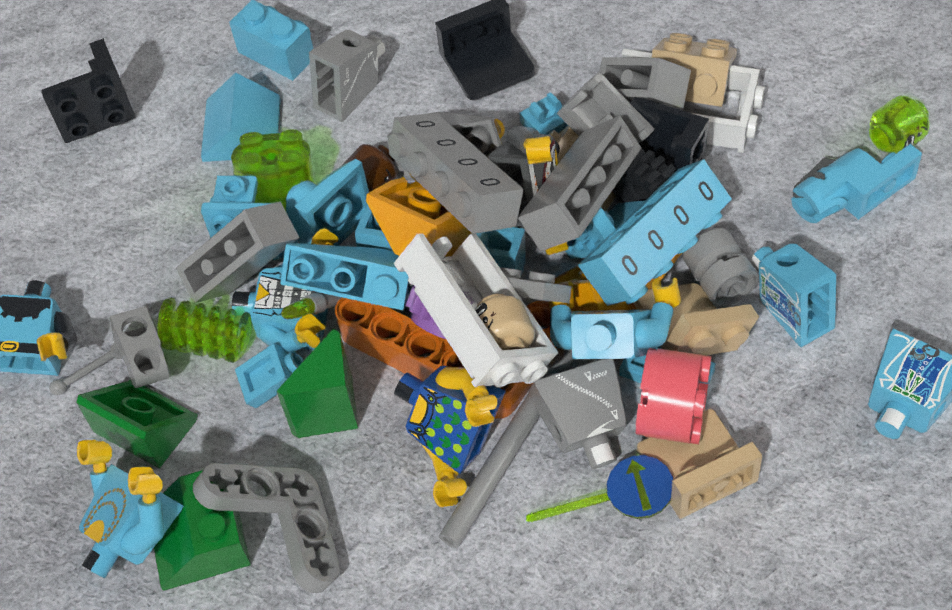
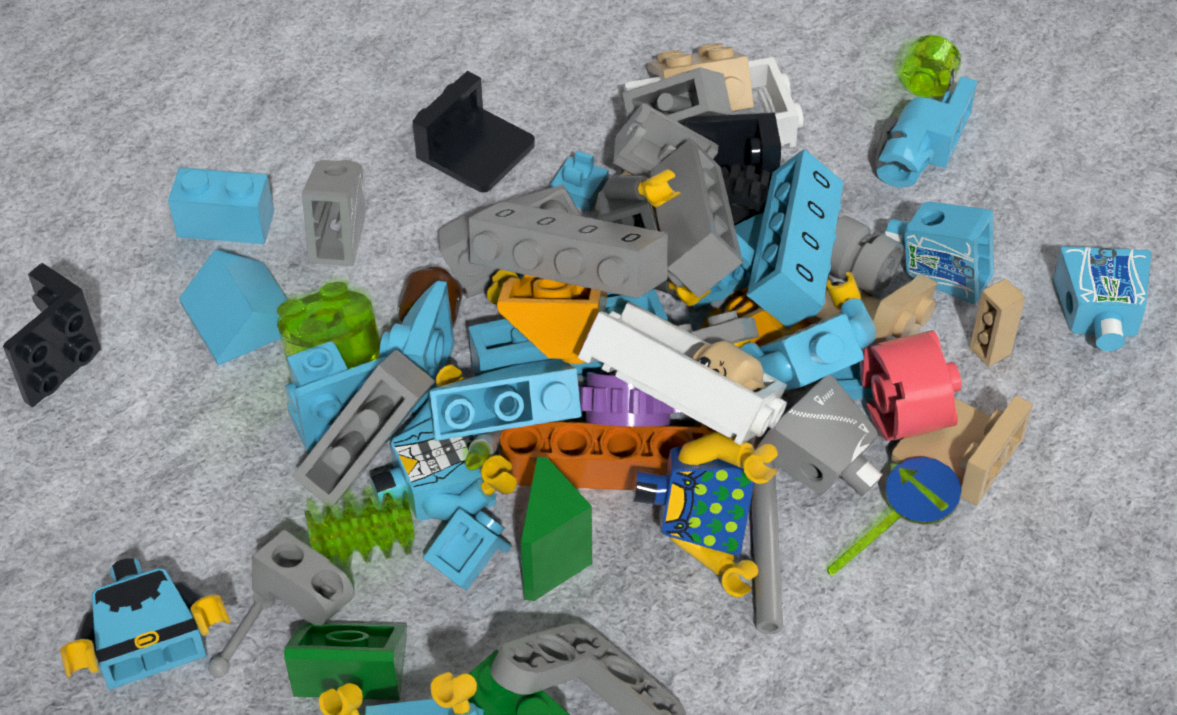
camera: 35 degrees left, 5 degrees down
(791, 371) = (997, 322): none -> tan piece

